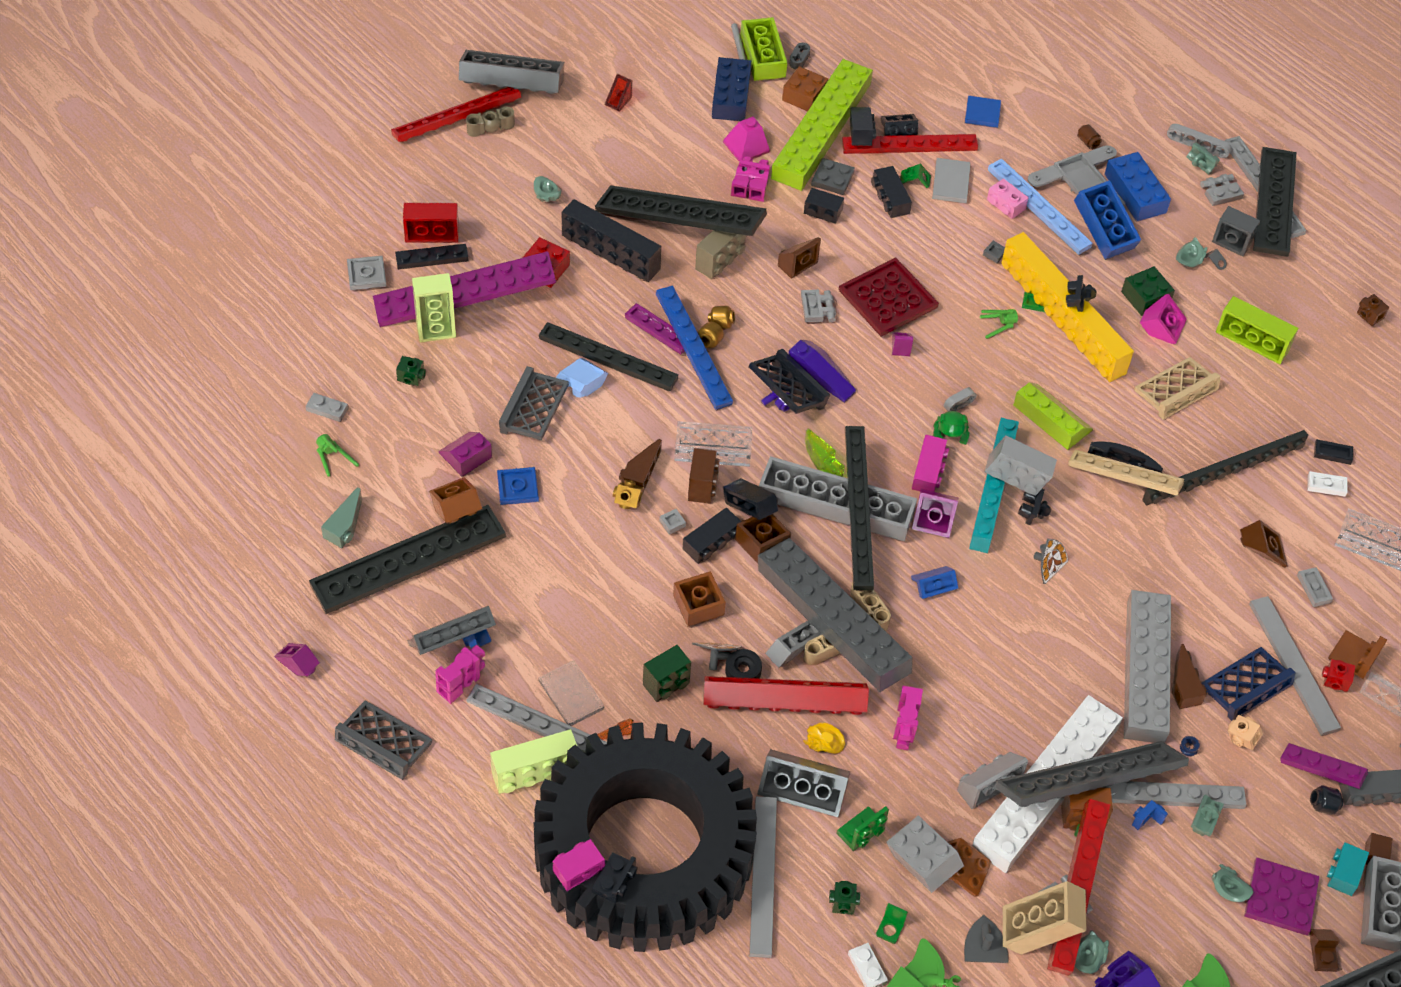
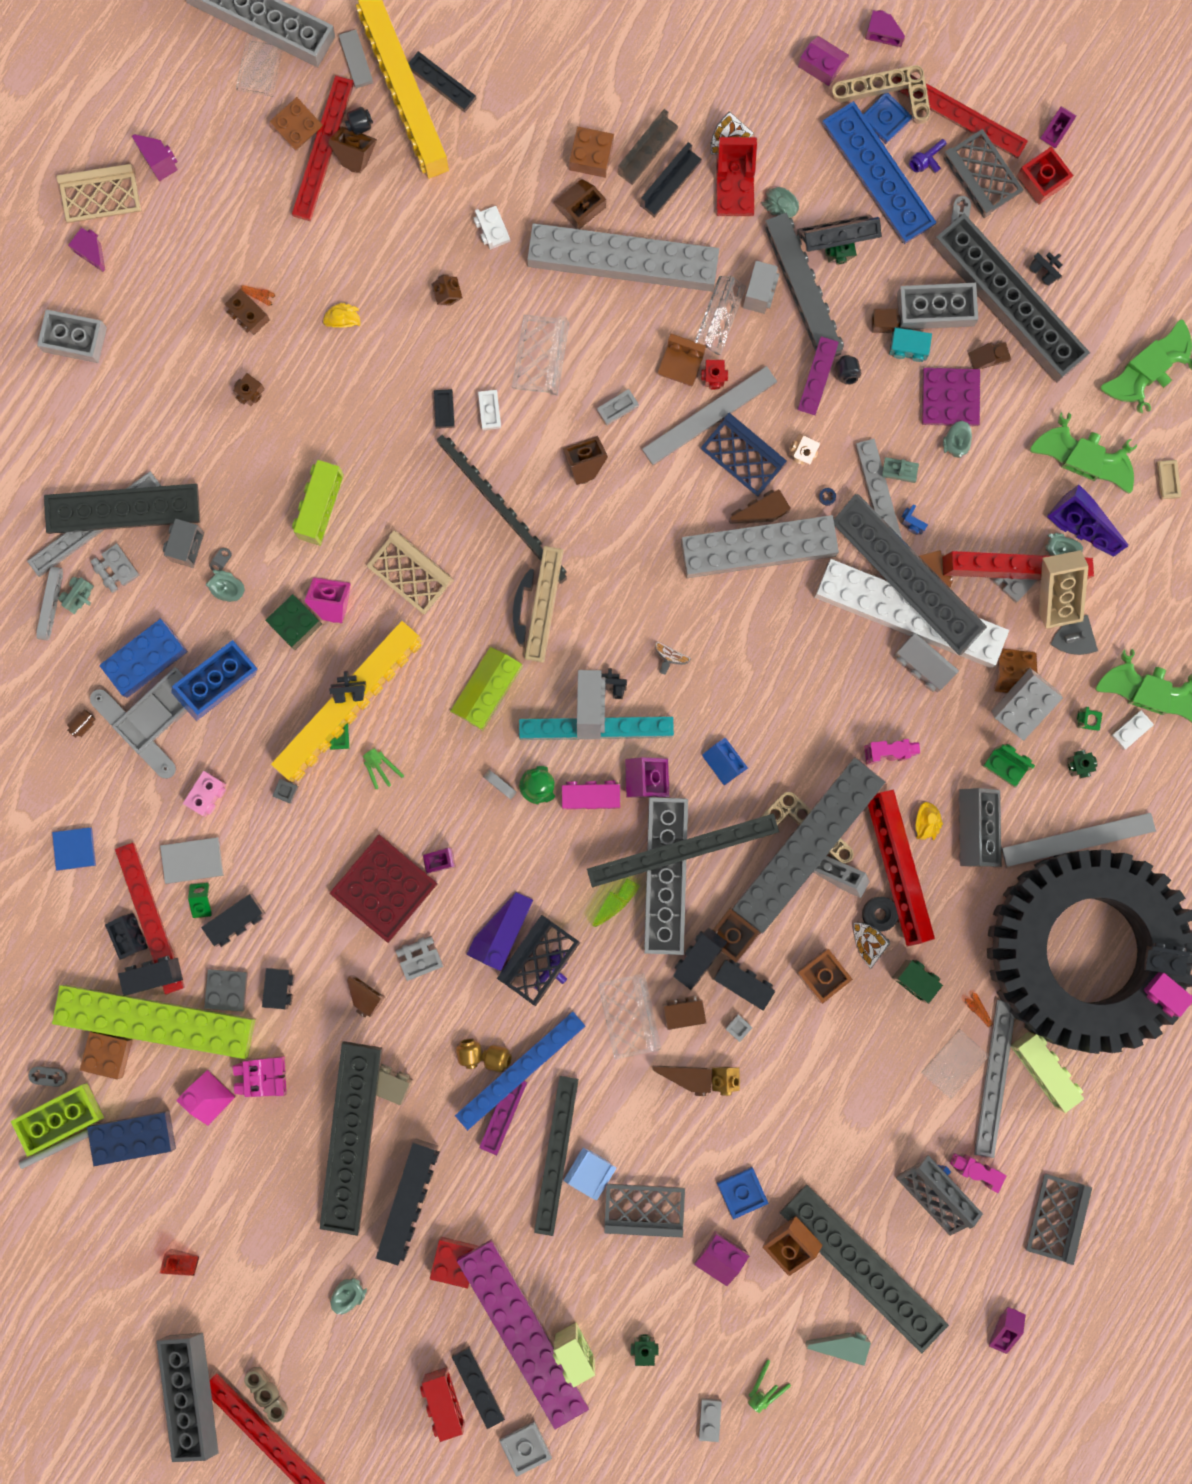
camera: 105 degrees left, 30 degrees up
(1042, 208) = (203, 758): light blue plate -> none

